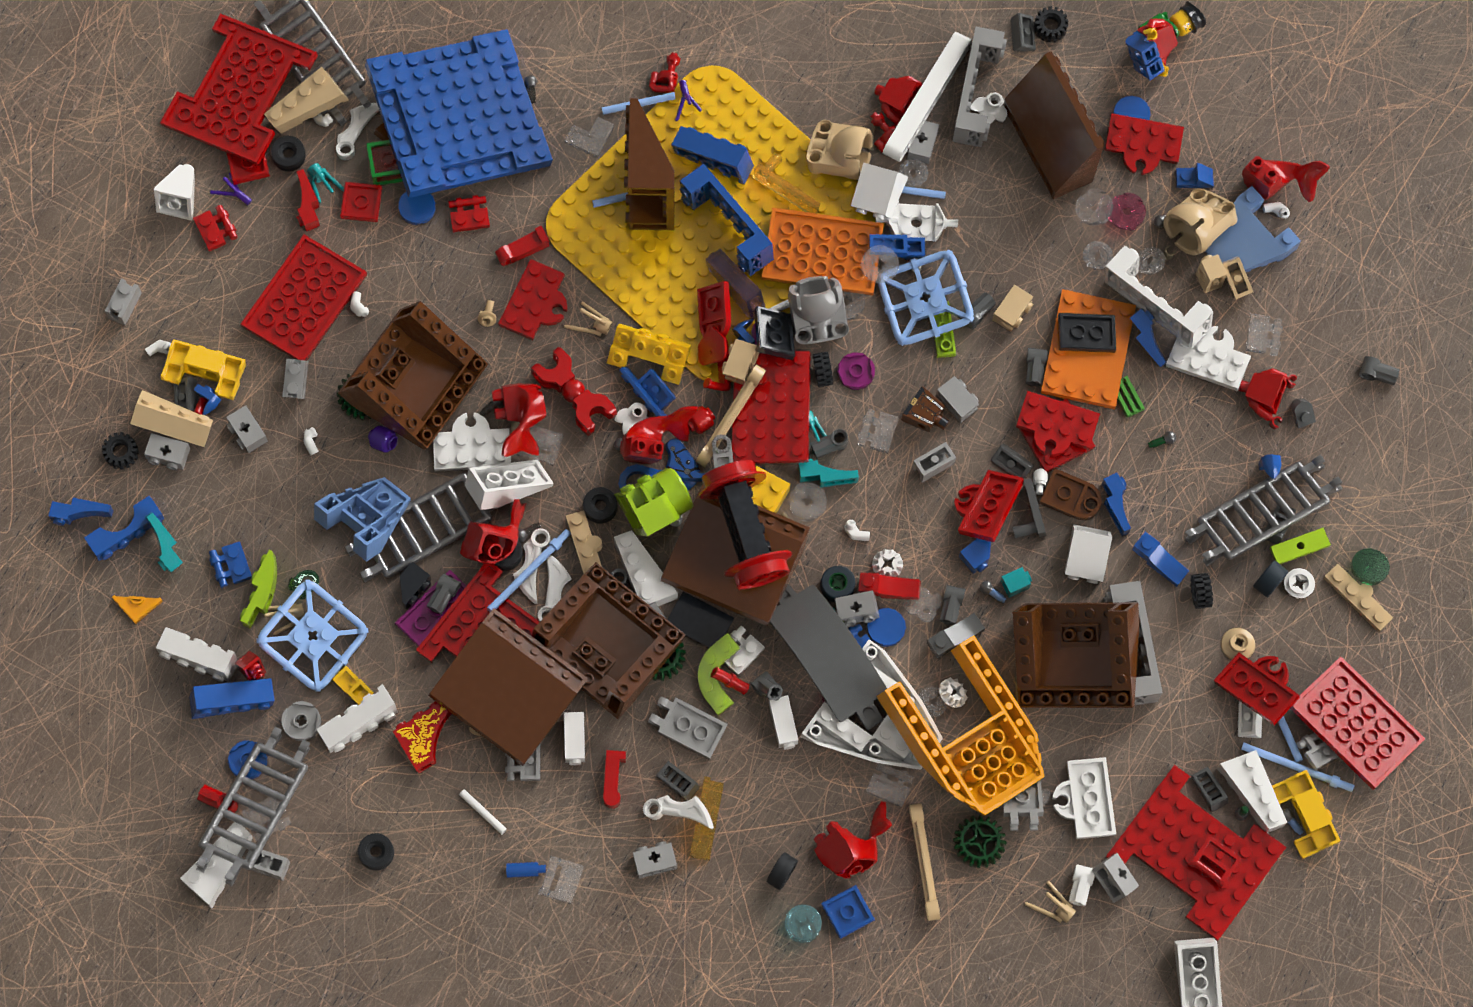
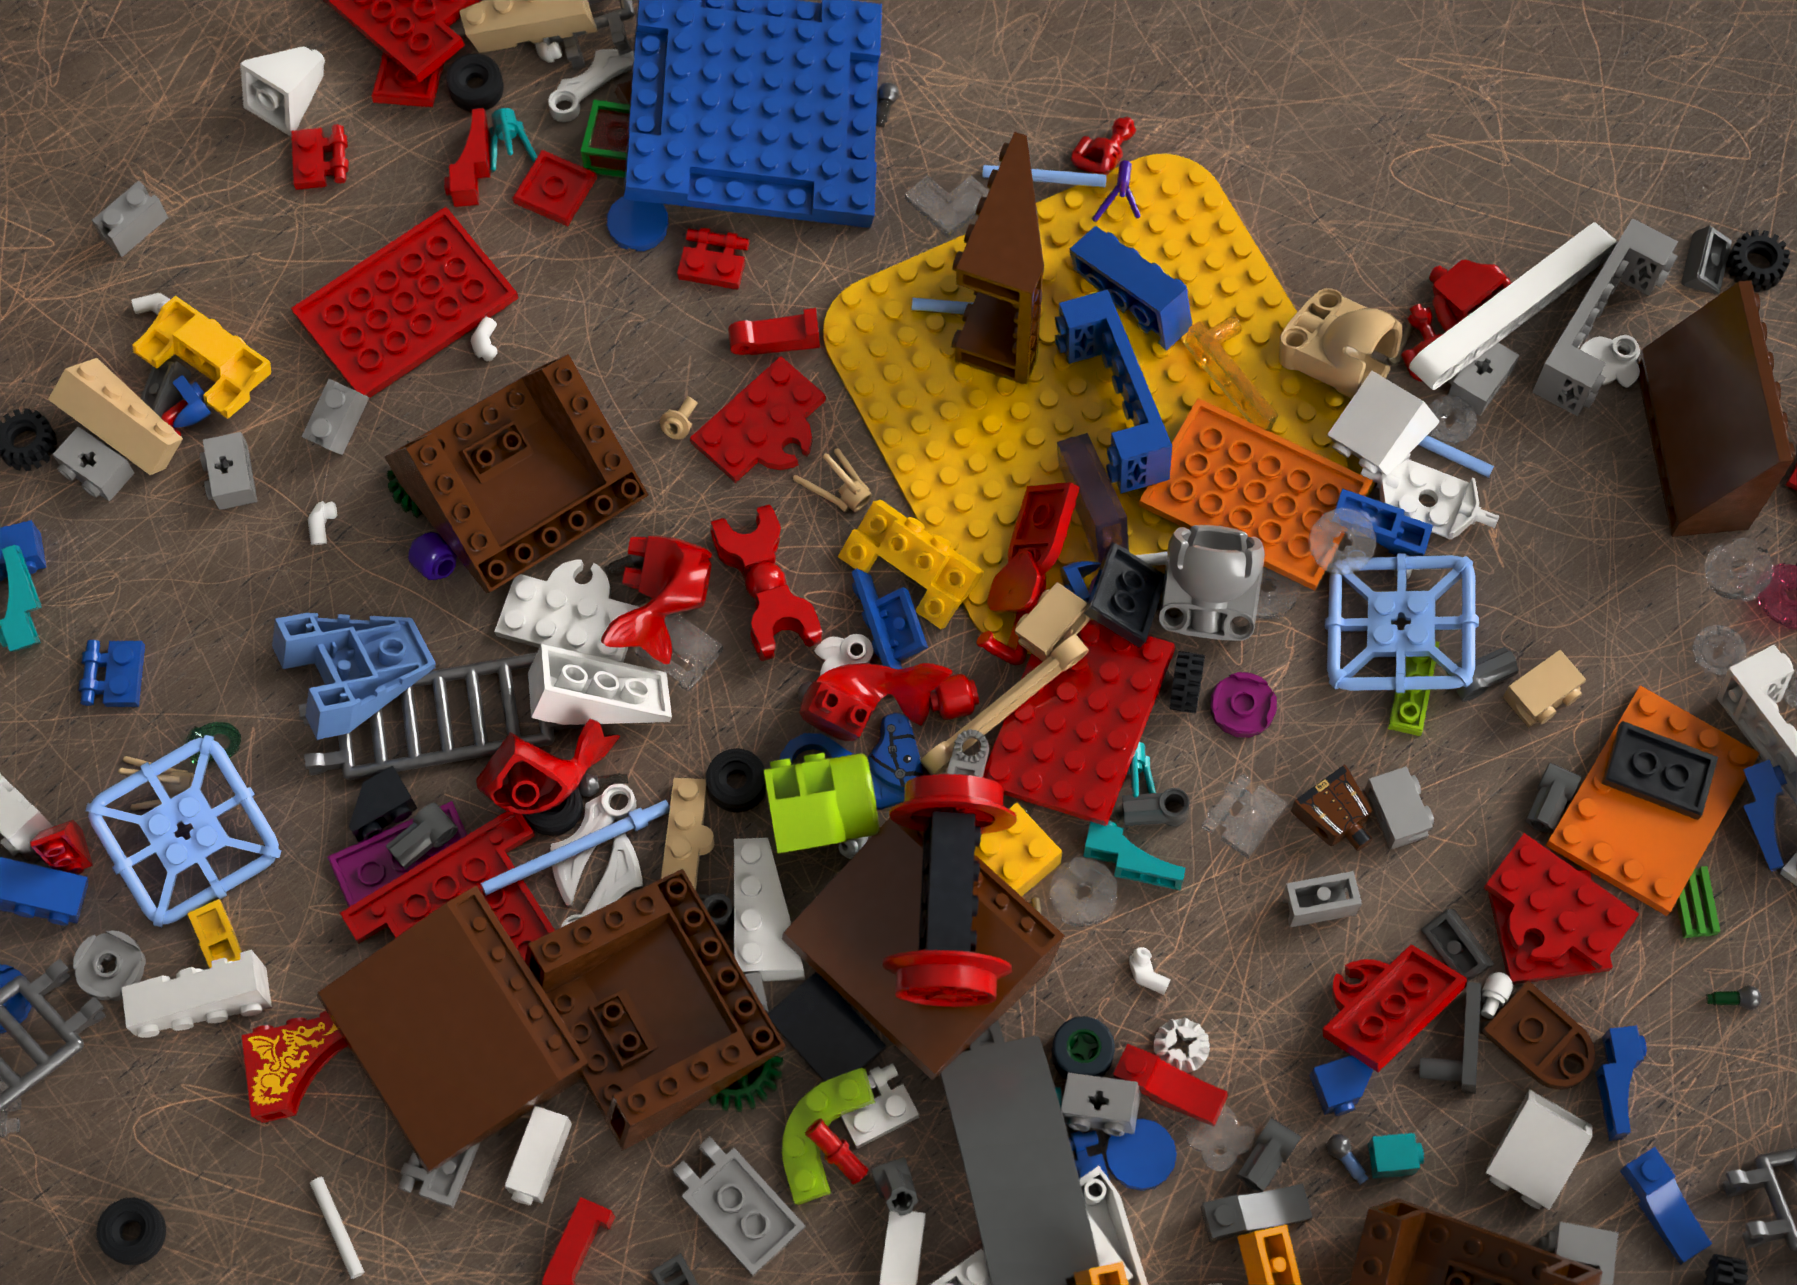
camera: 25 degrees right, 5 degrees down
(237, 192) = (373, 115): dark purple plant -> none
(265, 583) = (151, 722): lime slope -> none

